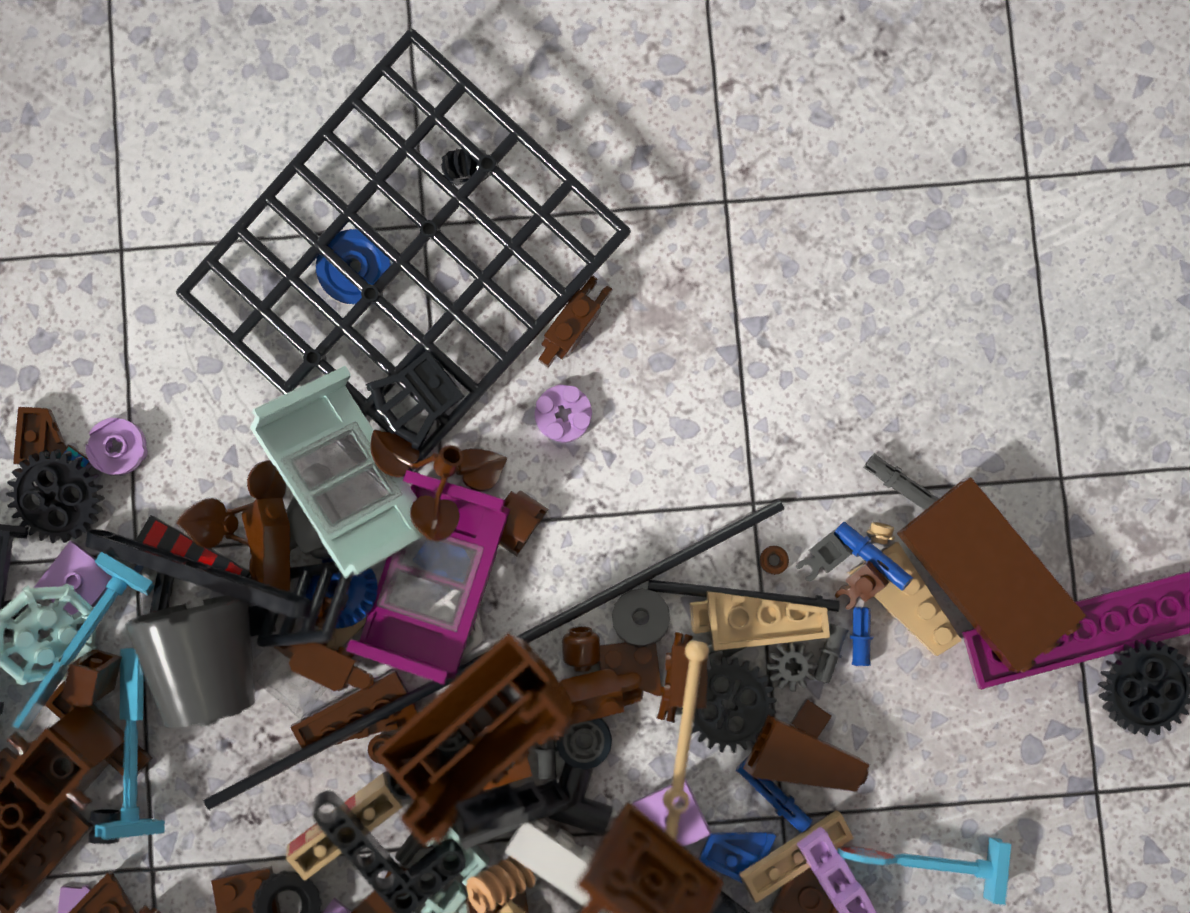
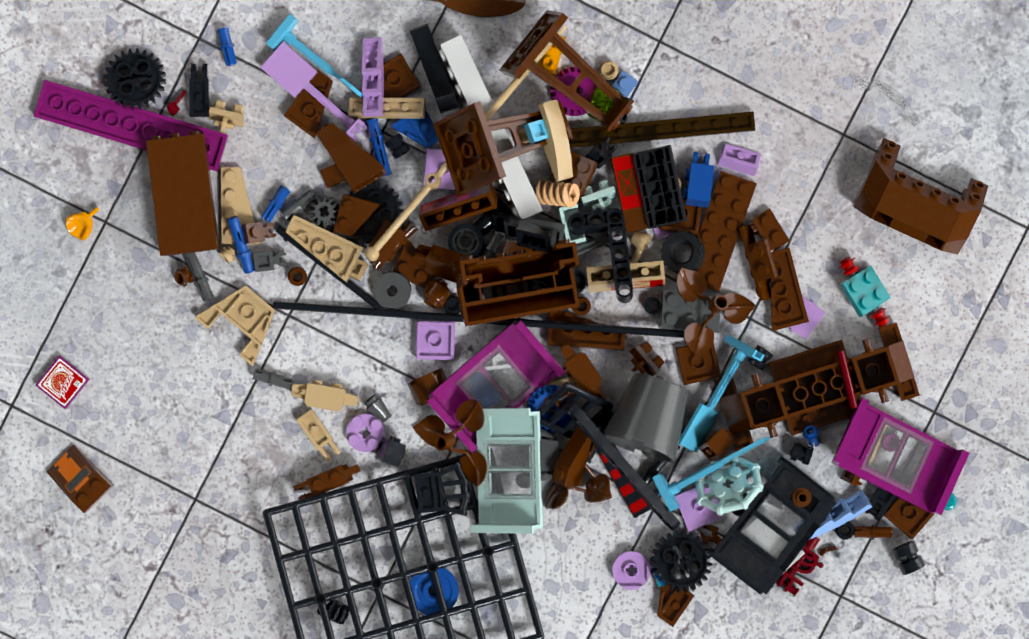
camera: 150 degrees left, 5 degrees up
(33, 553) = (716, 539): none -> reddish brown bar
(183, 872) = (735, 307): none -> reddish brown plant
(185, 769) = (697, 368): none -> reddish brown tile
(231, 832) = (678, 313): none -> dark grey brick
(257, 727) = (643, 362): none -> reddish brown hips
(283, 800) = (653, 311): none -> black bush
(354, 884) = (640, 241): none -> tan bar
(515, 409) = (391, 451): none -> black brick
(545, 586) = (435, 340): none -> lavender plate
(549, 646) = (452, 305): none -> black plate
(566, 454) = (377, 407): none -> dark grey cone
(621, 782) = (455, 208): none -> reddish brown brick
(623, 375) = (317, 433): none -> tan hinge
(644, 426) = (323, 396): none -> tan hinge
(724, 409) = (272, 378): none -> dark grey pin
(753, 686) = (353, 214): none -> reddish brown wing
(753, 813) = (397, 146): none -> black wheel
(806, 472) = (247, 313): none -> tan wing
(884, 136) = (79, 479): none -> reddish brown slope
(899, 797) = (308, 111): none -> reddish brown wing
(919, 469) = (183, 276): none -> reddish brown plate
(944, 824) = (295, 74): none -> lavender piece
(984, 243) = (62, 382): none -> tile
(997, 709) = (224, 118): none -> tan hips
(1052, 721) = (199, 93): none -> black hinge
(1055, 805) = (227, 46): none -> blue axle
(1074, 681) = (172, 107): none -> dark red hand
(1092, 455) = (80, 224): none -> light orange piece

